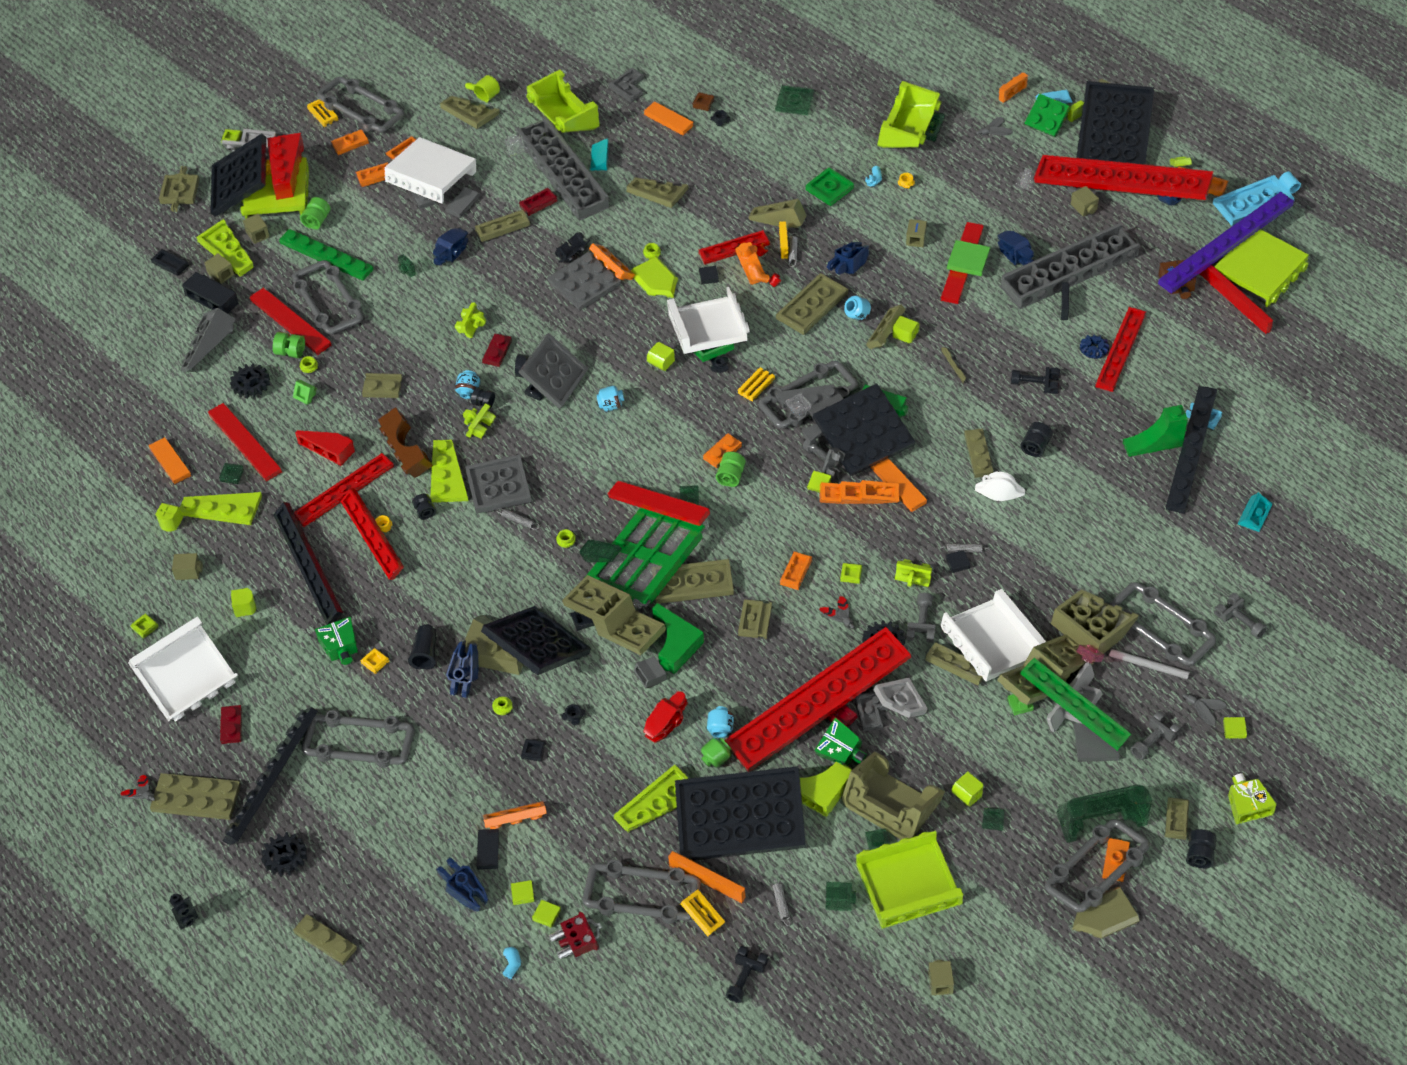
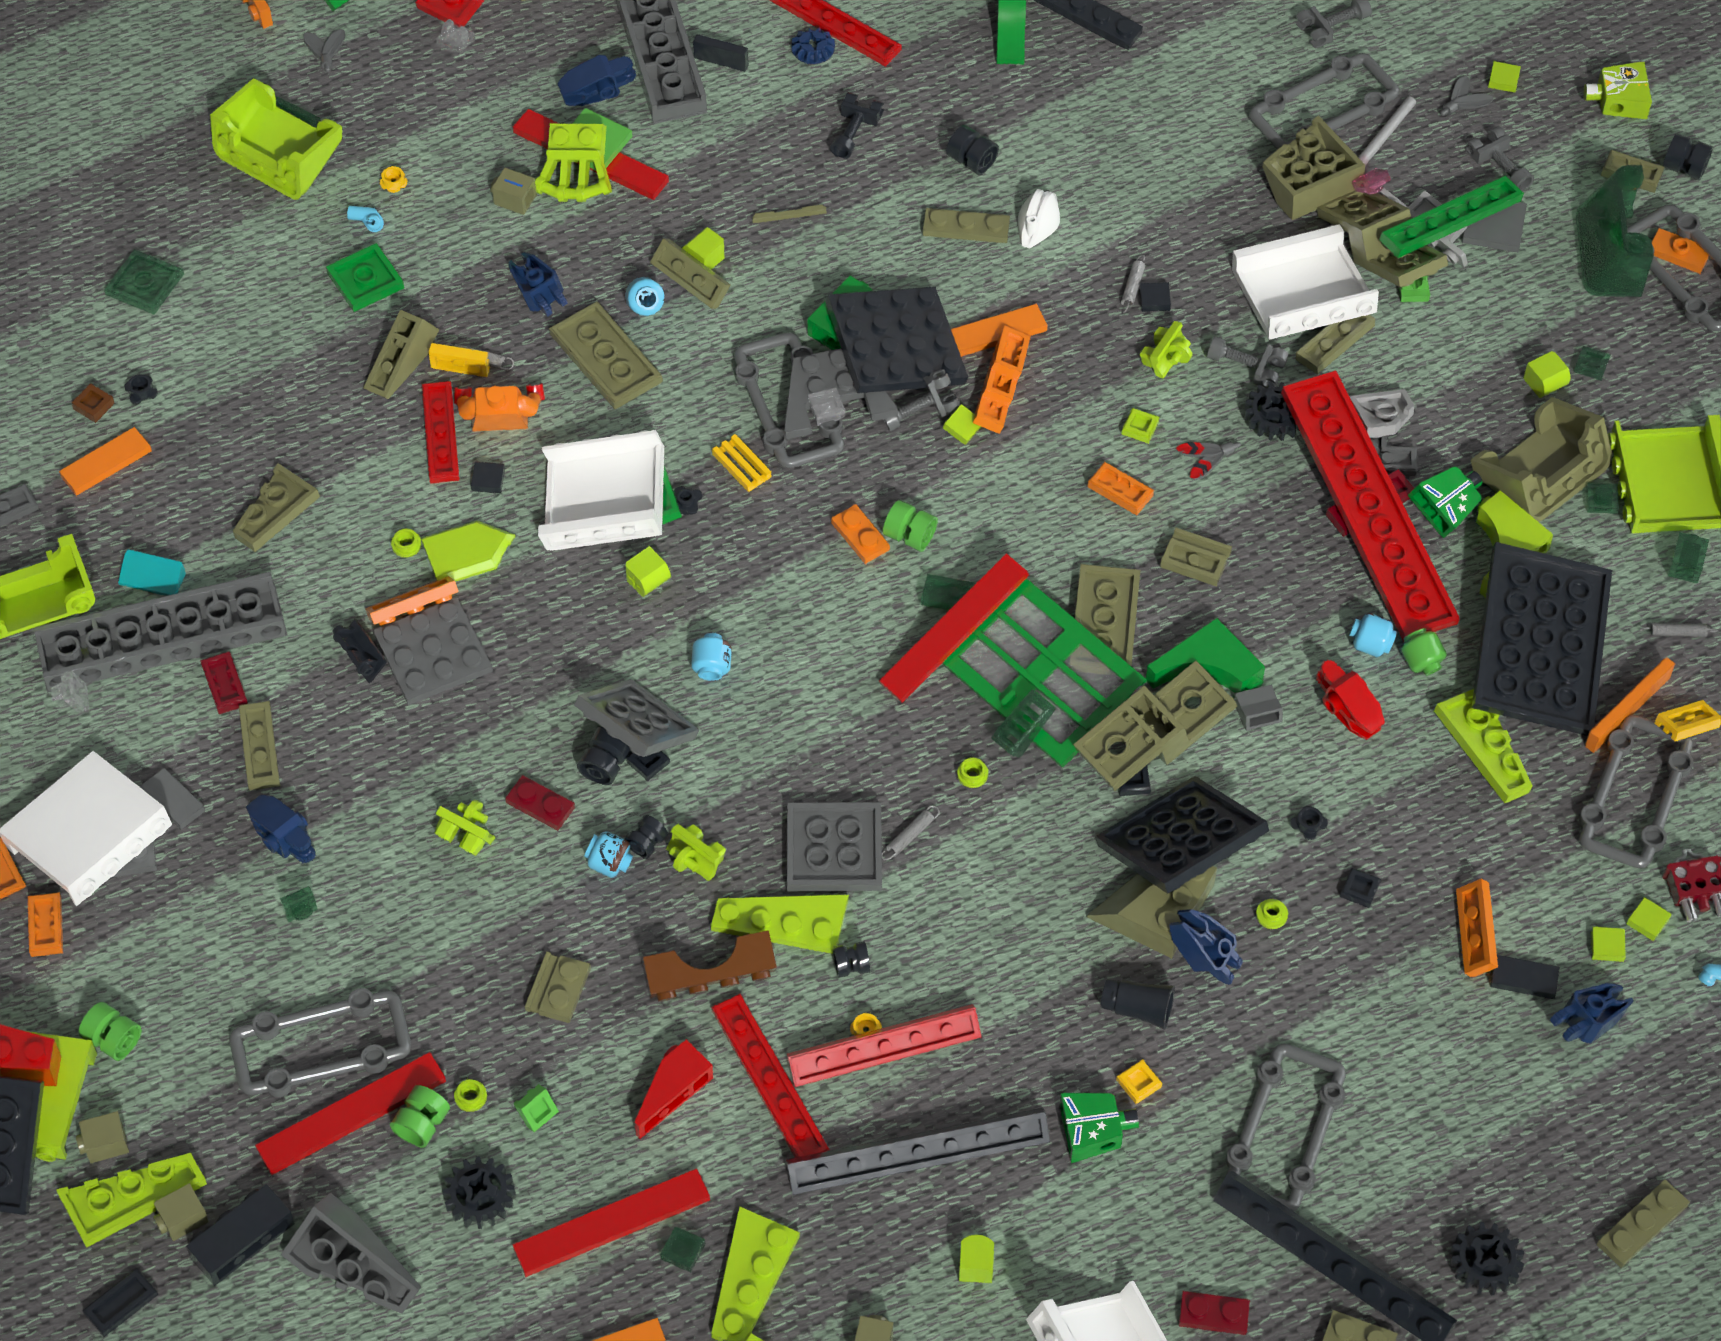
camera: 80 degrees left, 5 degrees up
(323, 252) = (209, 1034): green plate -> none
(944, 252) = (575, 144): none -> lime plate

